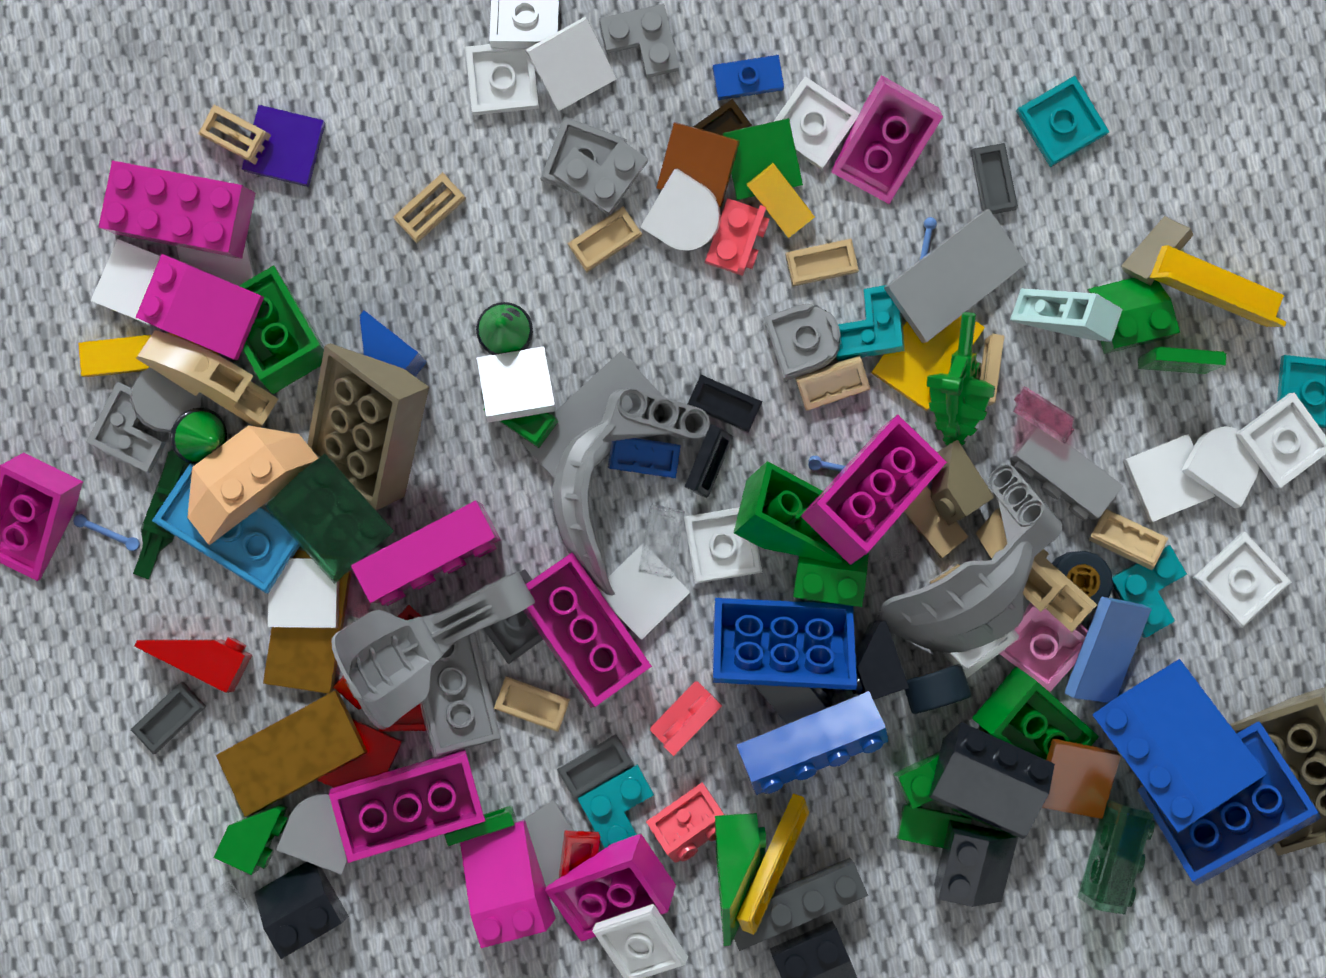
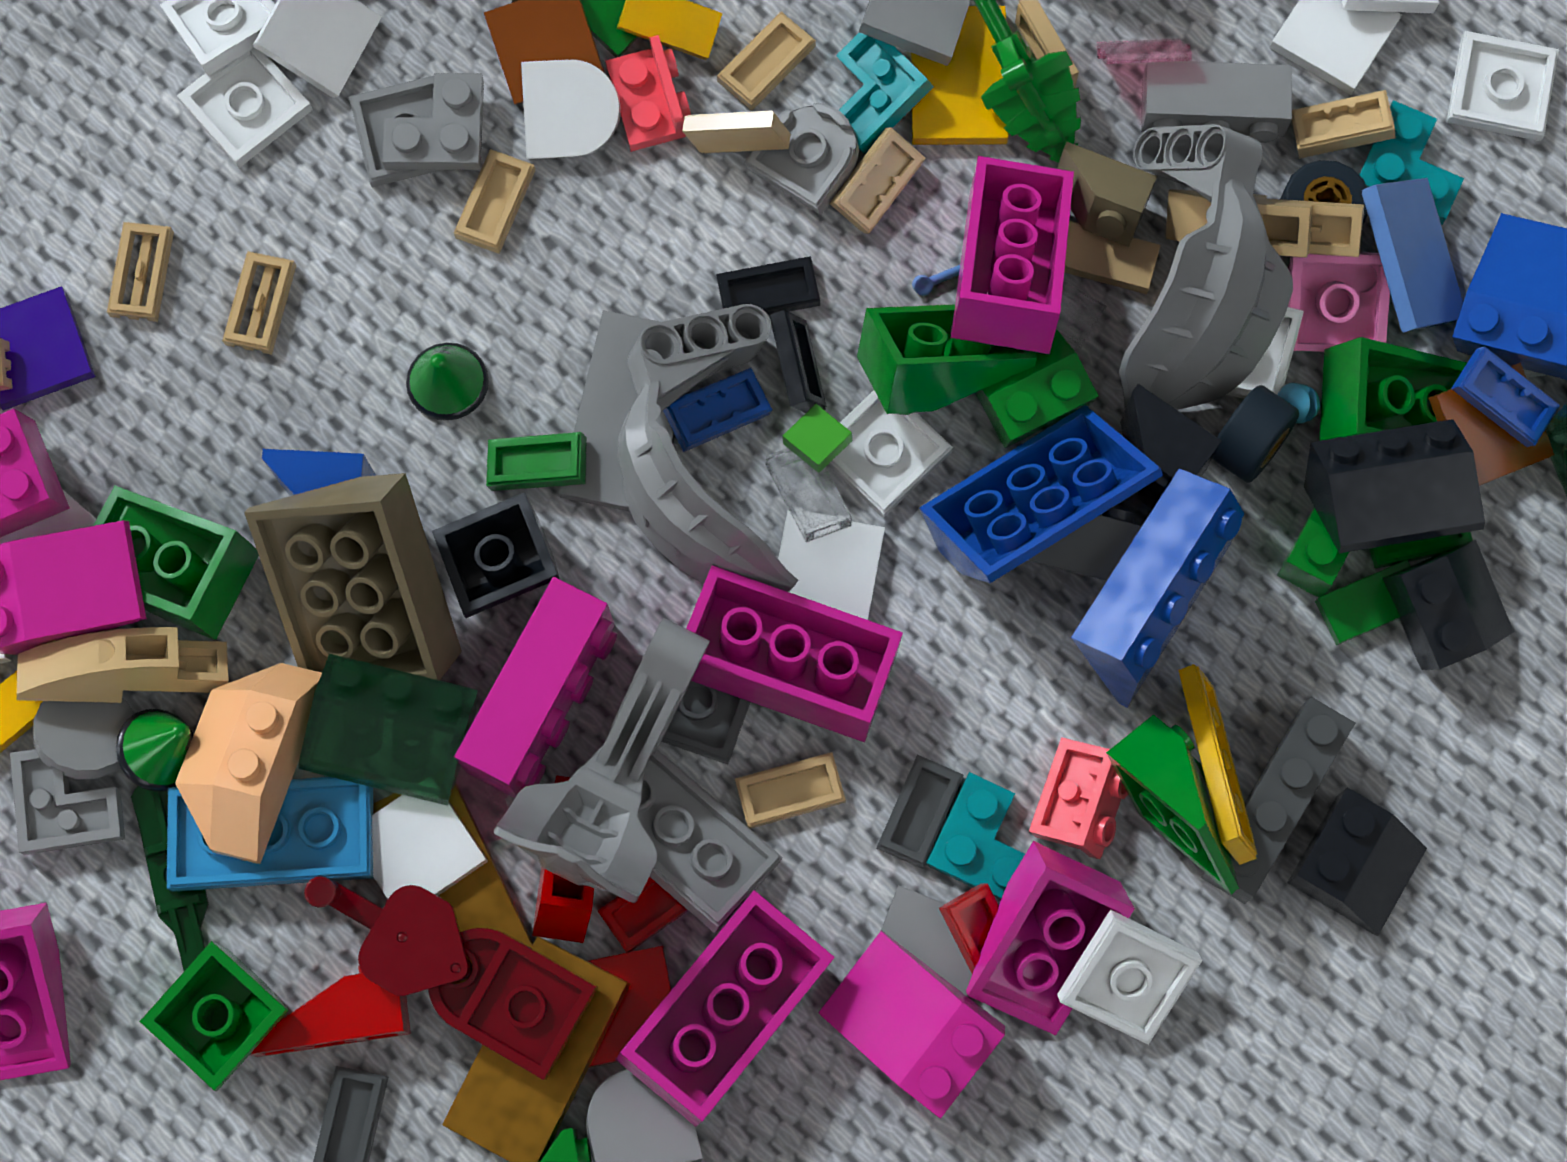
camera: 30 degrees left, 10 degrees down
(131, 543) = (158, 941): medium blue hinge -> none
(131, 613) = (215, 1015): none -> green slope
(297, 718) = (510, 1002): none -> dark red plate
(394, 120) = (135, 310): none -> tan tile
(457, 461) = (496, 554): none -> black slope
(493, 822) = (832, 977): green tile -> none
(515, 384) = (505, 428): white tile -> none
(685, 717) = (986, 674): coral bracket -> none
(687, 515) = (817, 438): none -> bright green tile
(770, 298) = (736, 132): none -> tan tile
(979, 685) = (1302, 398): none -> medium azure hinge
(1095, 771) = (1505, 396): none -> blue plate

